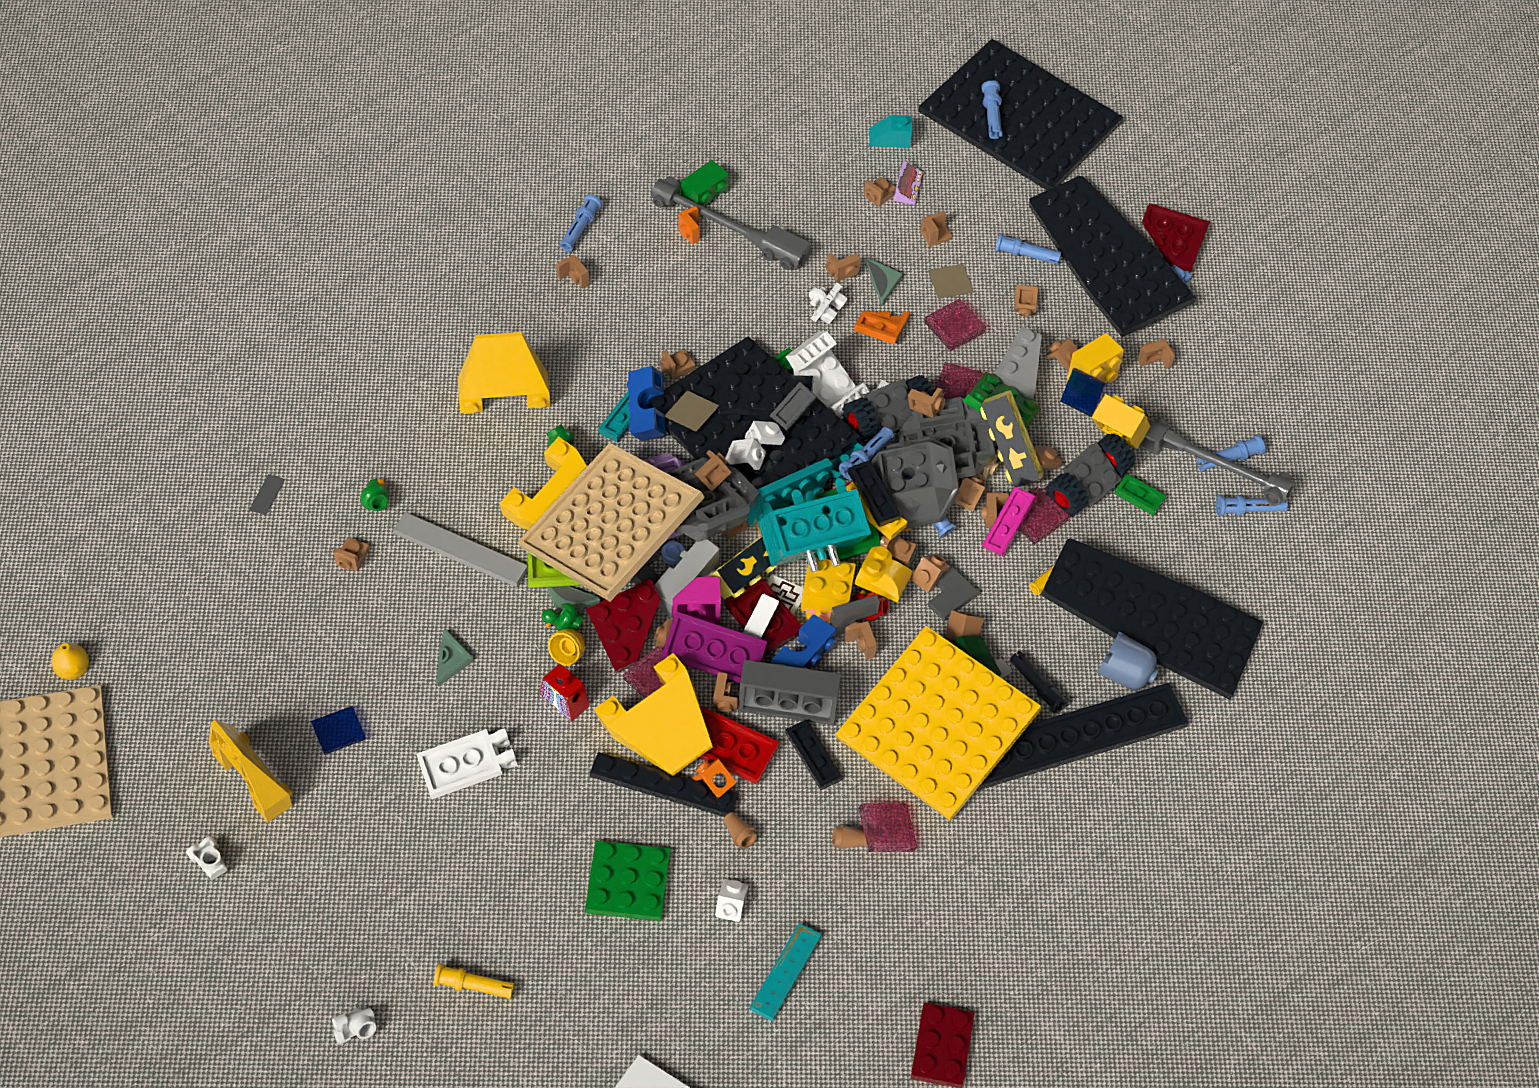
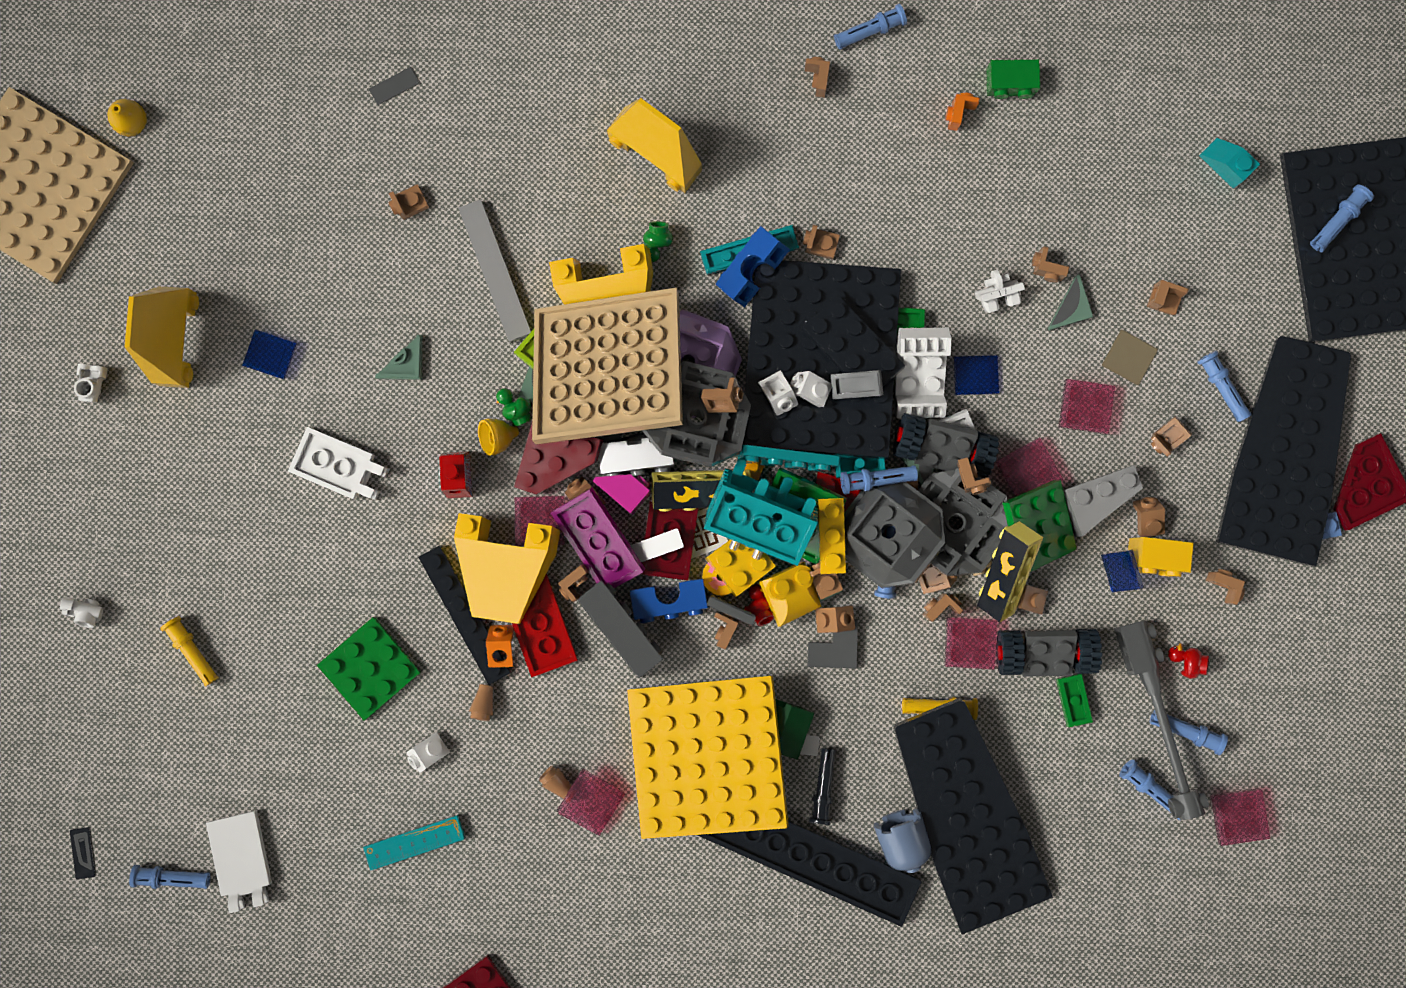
camera: 45 degrees right, 30 degrees up
(375, 495) = (469, 165): green animal -> none
(691, 410) = (783, 305): dark tan sticker -> none
(775, 243) = (1013, 192): dark grey bar -> none
(813, 755) = (597, 690): black tile -> none
(864, 363) = (976, 375): none -> clear blue piece
(874, 493) = (839, 528): black tile -> none
(879, 191) = (1158, 214): medium nougat bracket -> none
(881, 325) = (1025, 354): orange wing -> none
(908, 184) = (1191, 228): slope -> none
(963, 625) = (813, 690): medium nougat panel -> none
(1009, 521) = (940, 632): dark pink tile -> none
(1121, 420) = (1117, 637): yellow brick -> none
(1187, 410) = (1194, 661): none -> red animal
(1320, 476) = (1240, 816): none -> clear pink plate

